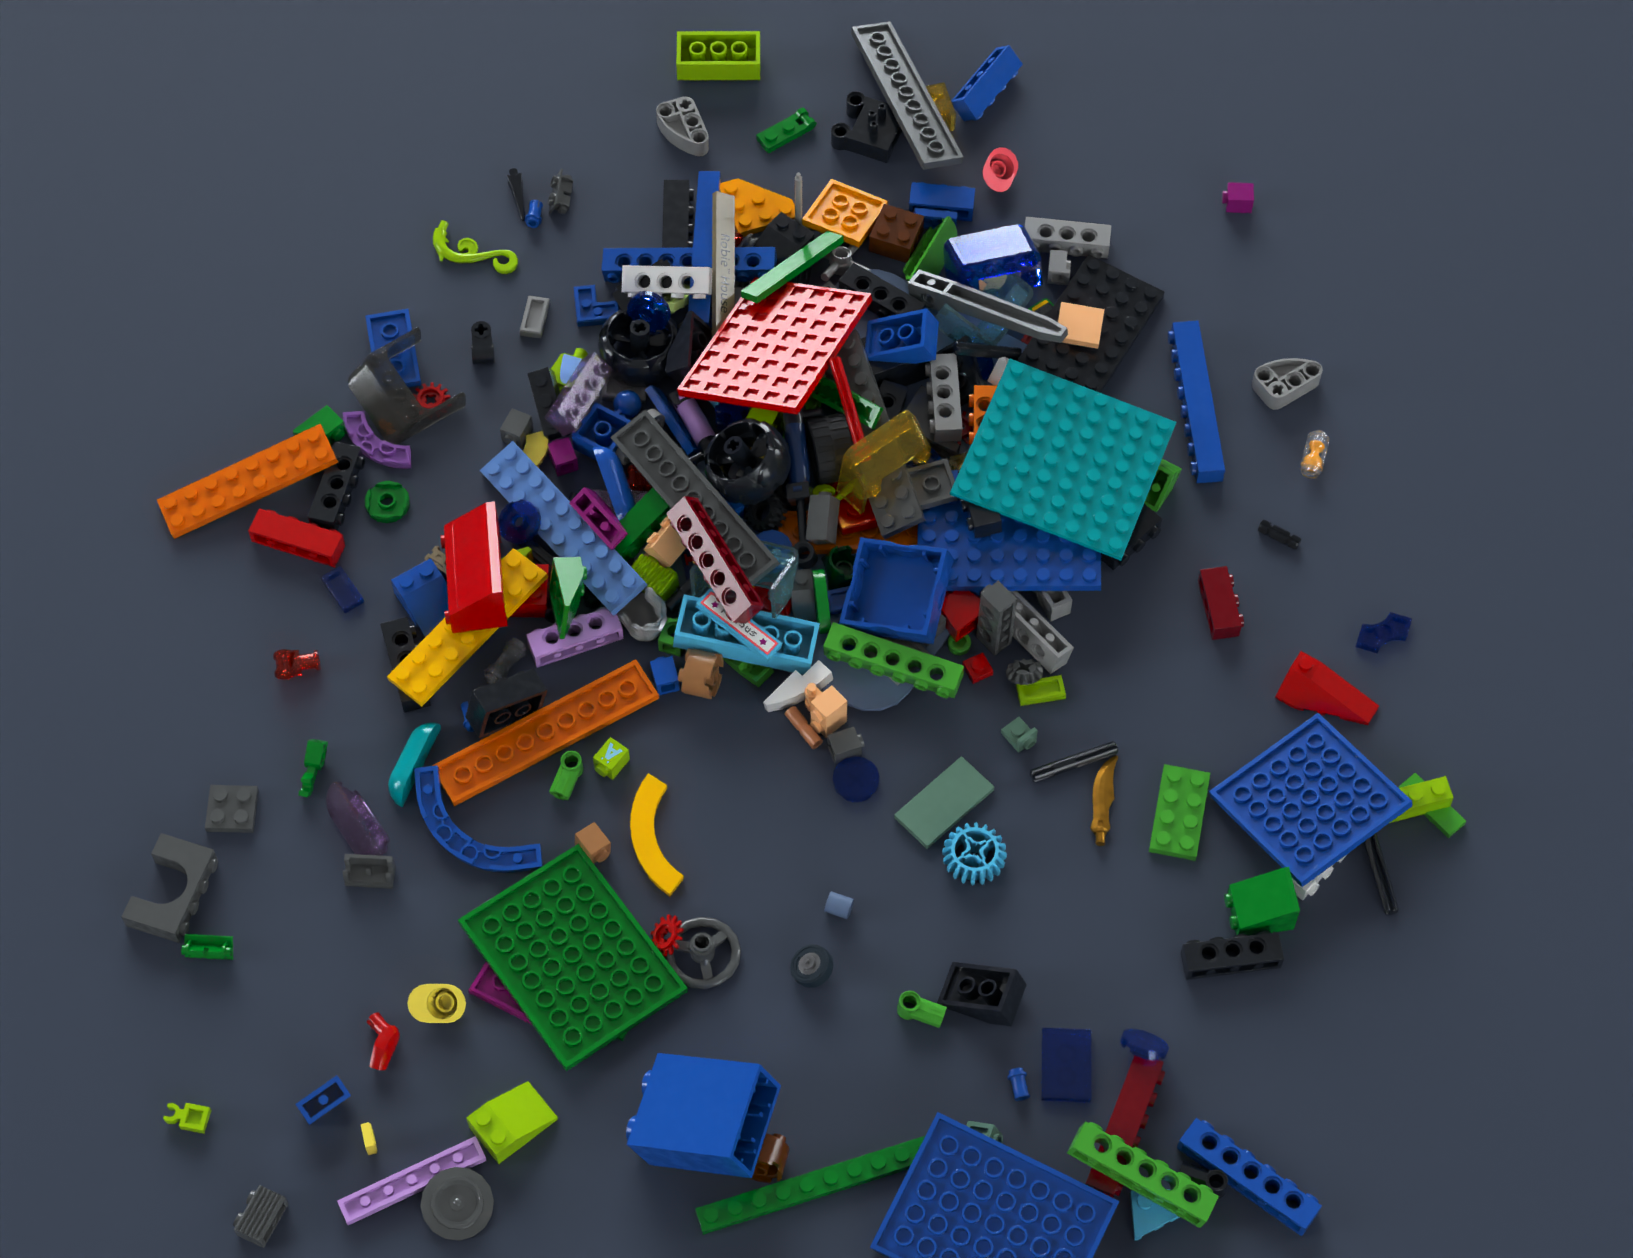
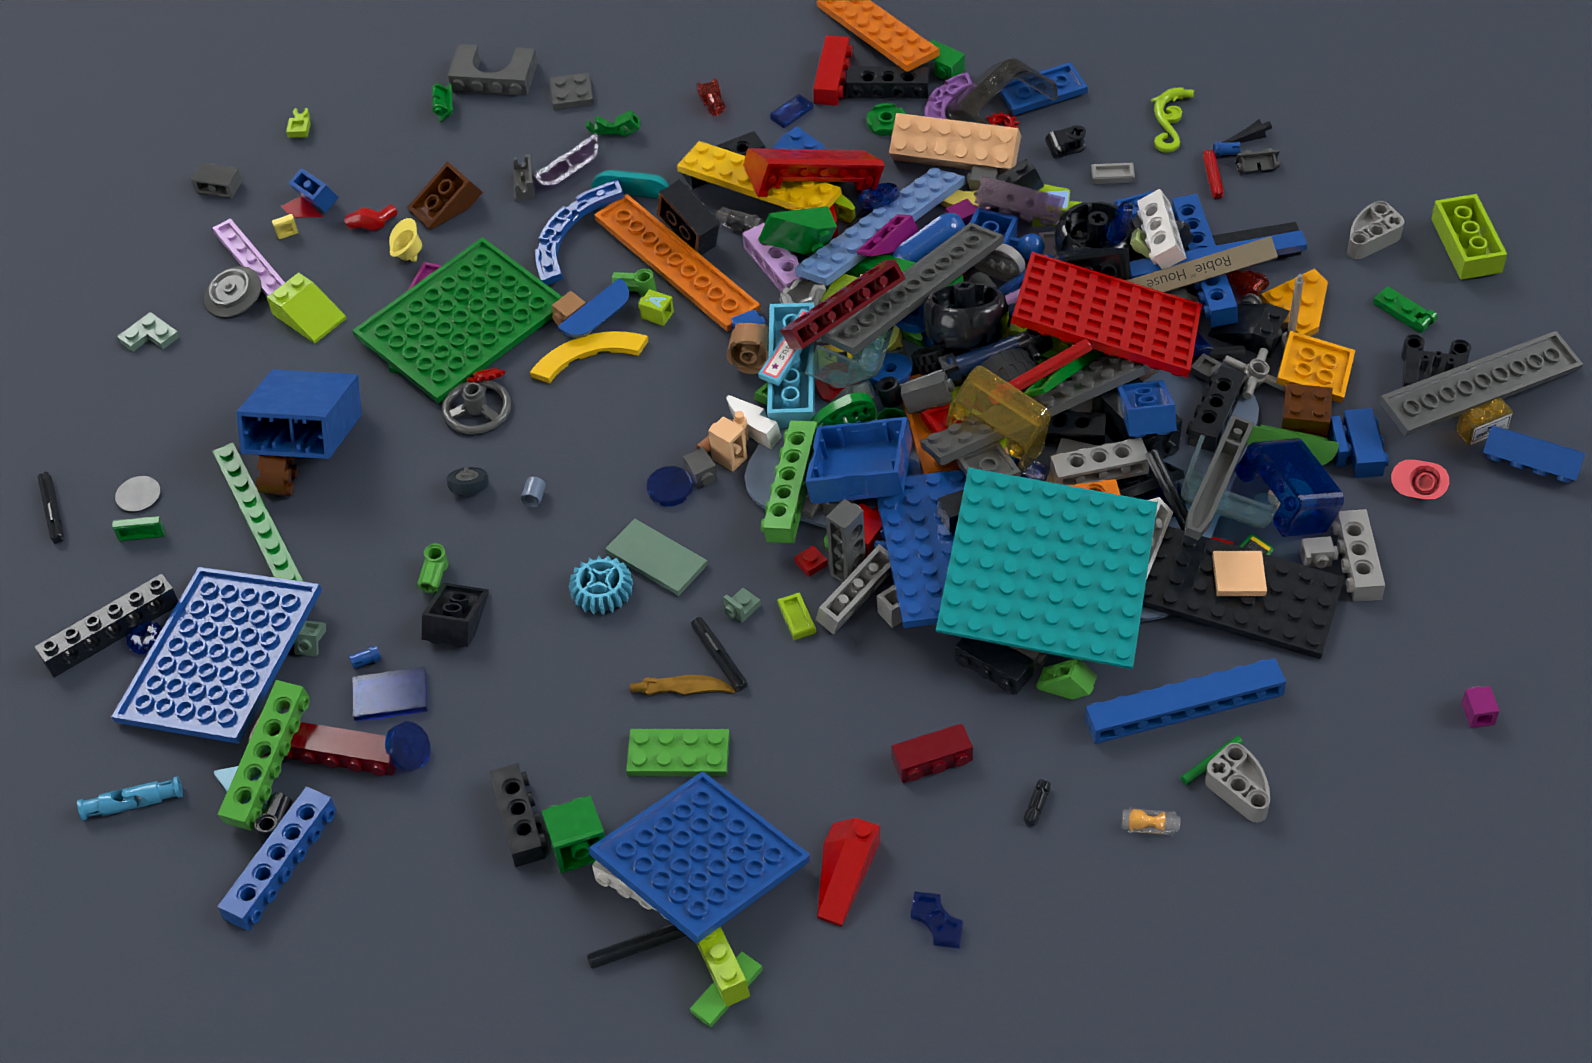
camera: 85 degrees right, 10 degrees down
(332, 1125) = (300, 208): none -> red sticker
(375, 959) = (444, 197): none -> reddish brown slope
(465, 439) = (953, 143): none -> light nougat brick
(564, 233) = (1213, 174): none -> red axle
(598, 806) = (596, 311): none -> blue brick
(792, 267) = (1220, 325): tile -> none
(1024, 672) = (809, 602): dark grey gear -> none
(1258, 401) = (1202, 766): none -> green bar

